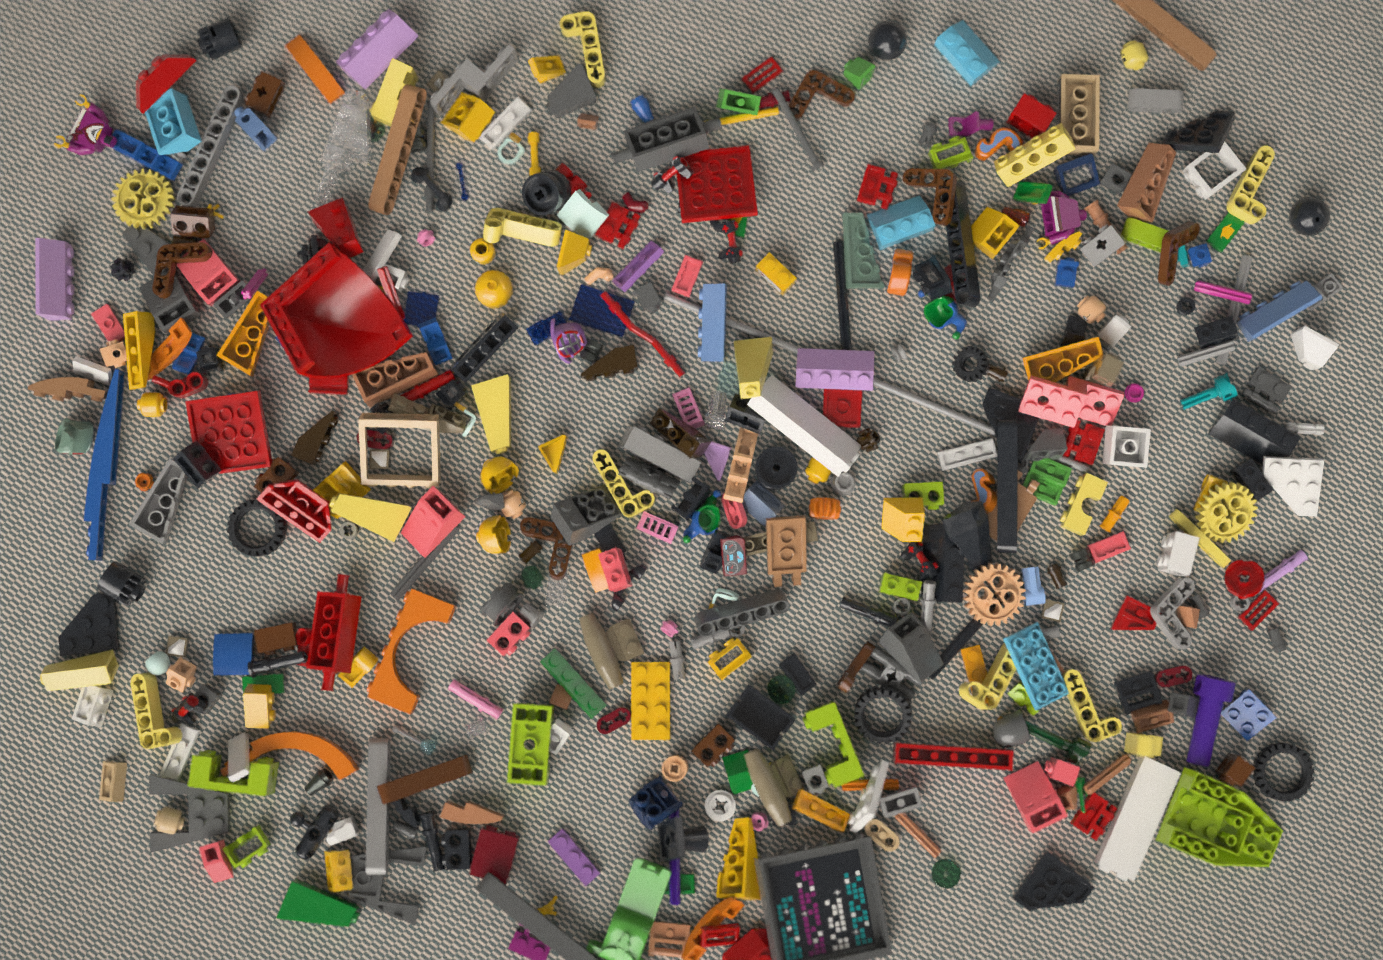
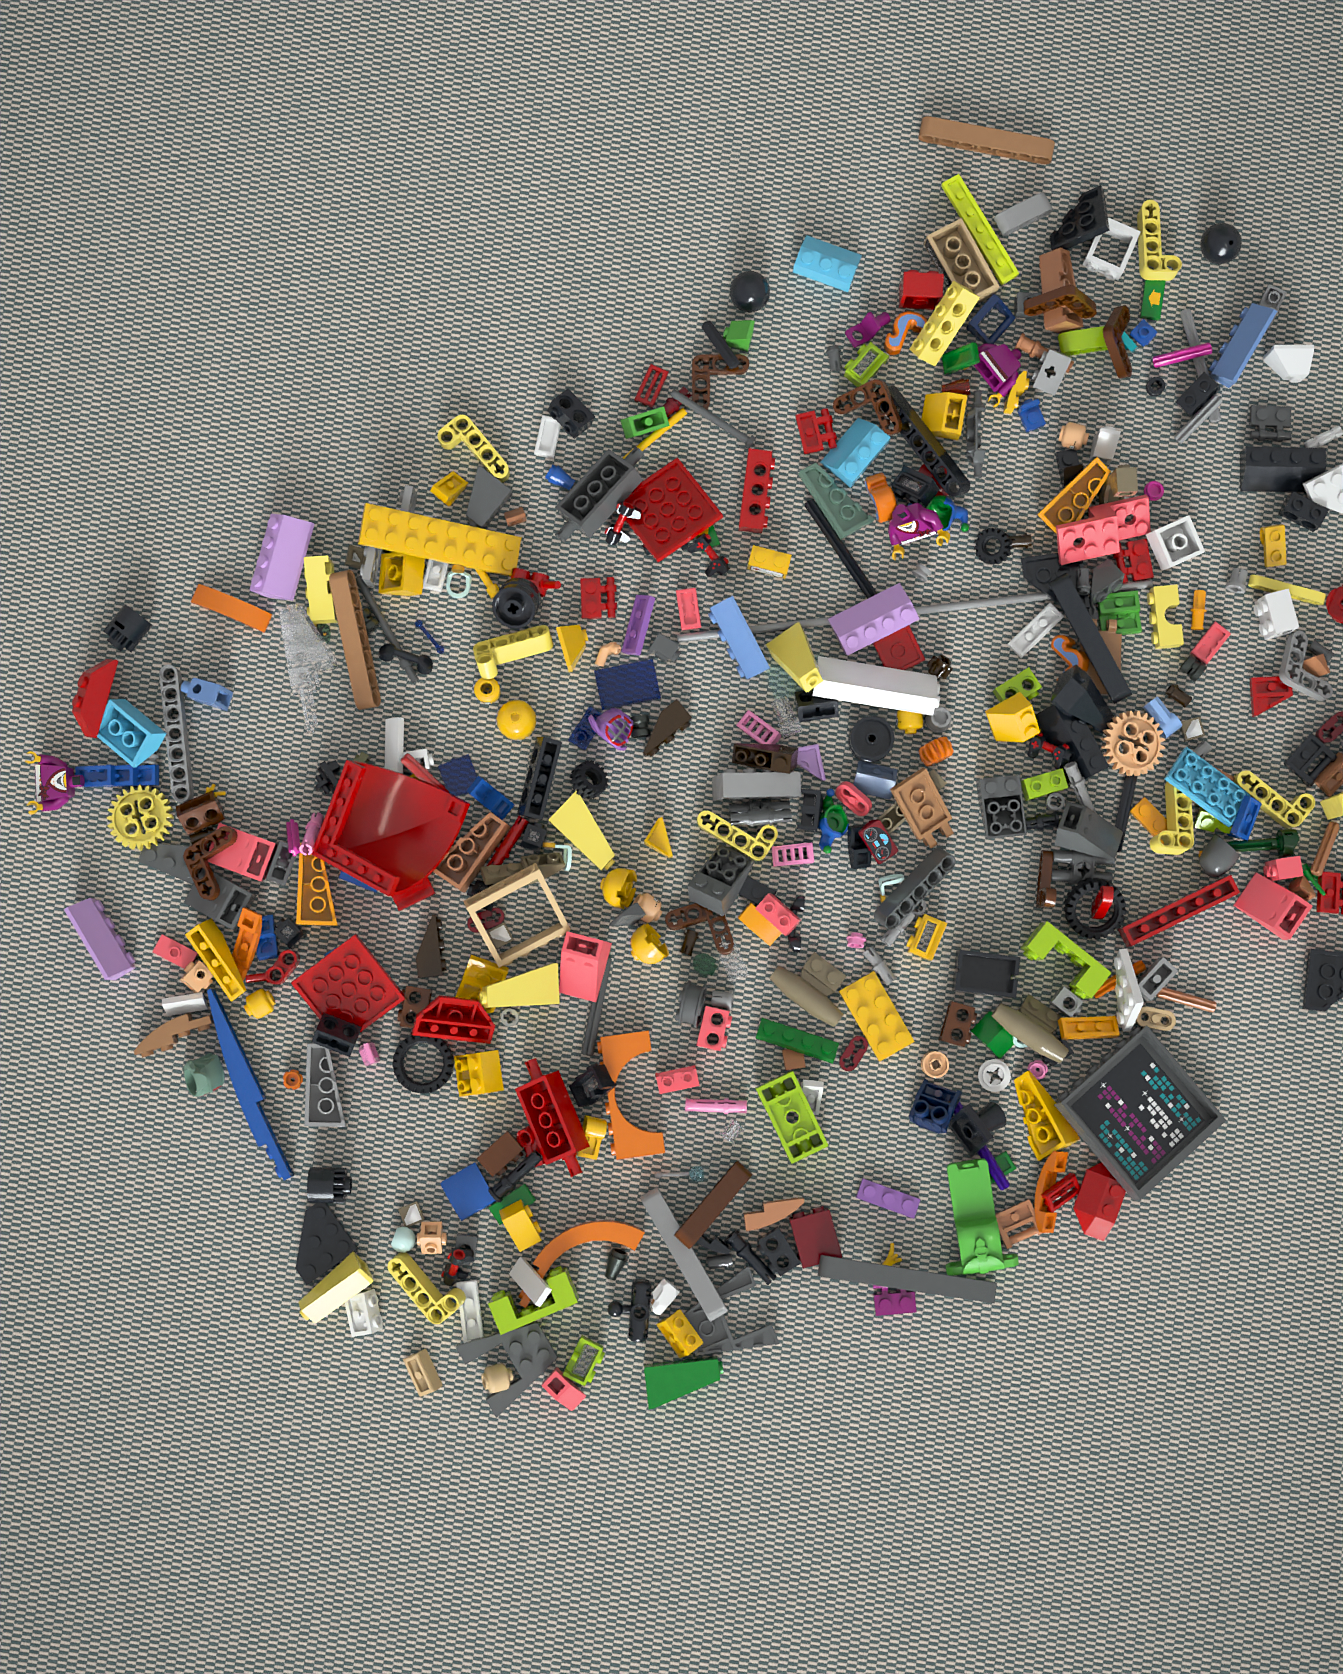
camera: 40 degrees left, 0 degrees up
(122, 269) = (158, 894): black gear -> none
(218, 496) = (369, 1054): none -> bright pink slope
(264, 292) = (313, 828): none -> bright pink pin
(266, 103) = (205, 666): reddish brown brick -> none
(296, 562) = (478, 1073): none -> yellow slope
(337, 226) = (339, 742): red wedge -> none
(381, 624) = (591, 1085): none -> black window
(425, 237) = (426, 707): bright pink plate -> none
(455, 659) = (677, 1079): none -> coral window
(511, 105) = (439, 540): none -> yellow plate
(532, 368) = (597, 776): none -> black tyre
(582, 214) = (561, 605): light aqua slope -> none
(616, 309) = (639, 674): red bar -> none
(634, 205) = (603, 570): dark red arm -> none
(652, 70) = (547, 437): none -> white tile
(685, 60) = (573, 411): none -> black brick
(740, 465) = (837, 754): light nougat slope -> none
(781, 689) = (989, 938): clear green piece -> none
(798, 674) = (996, 916): black plate -> none
(812, 183) = (748, 521): none -> red brick
(838, 71) = (720, 344): none -> black axle
(853, 585) = (1001, 806): none -> dark grey slope
(891, 712) = (1102, 902): none -> red beam
(912, 308) = (912, 524): none -> magenta torso
(938, 873) = (1237, 1015): clear green piece -> none
(1028, 435) = (1083, 586): none -> dark grey pin
(1053, 710) = (1245, 818): none -> blue panel
(1111, 94) = (980, 229): none -> neon yellow plate
(1134, 55) = (981, 183): light yellow head -> none
(1143, 185) = (1065, 295): none -> reddish brown beam
(1161, 508) = (1237, 581): none -> light grey bush
(1221, 388) = (1230, 443): teal piece -> none
(1241, 505) = (1298, 552): light yellow gear -> none

